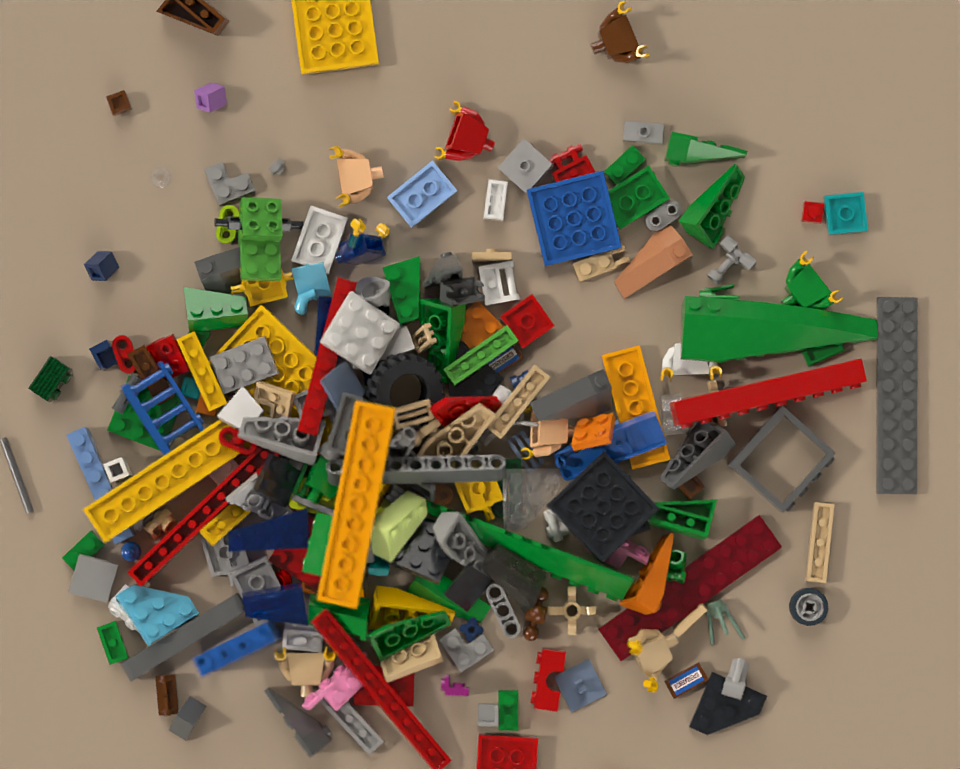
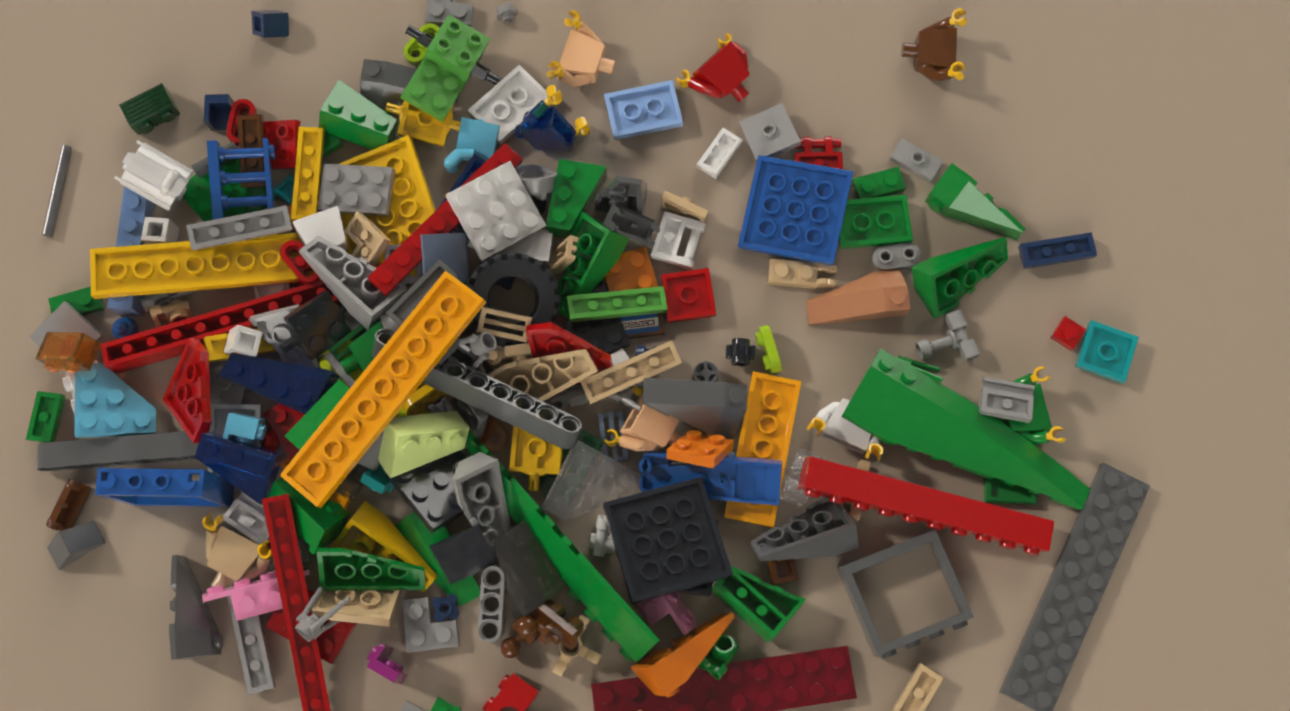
camera: 30 degrees right, 10 degrees down
(97, 432) = (155, 176): none -> white container
(108, 589) = (68, 351): none -> clear orange brick
(180, 438) = (239, 228): none -> light grey plate
(211, 573) = (190, 390): none -> red plate
(231, 519) = (243, 341): none -> white panel
(266, 578) = (244, 427): none -> medium azure brick
(391, 687) = (311, 626): none -> light grey plant
(557, 605) = (555, 628): none -> reddish brown hips
(571, 372) = (705, 370): none -> dark grey wheel
(586, 345) = (740, 352): none -> black gear
(599, 327) = (771, 358): none -> lime plate
(777, 153) = (1057, 250): none -> dark blue plate
(790, 289) = (1006, 400): none -> light grey plate

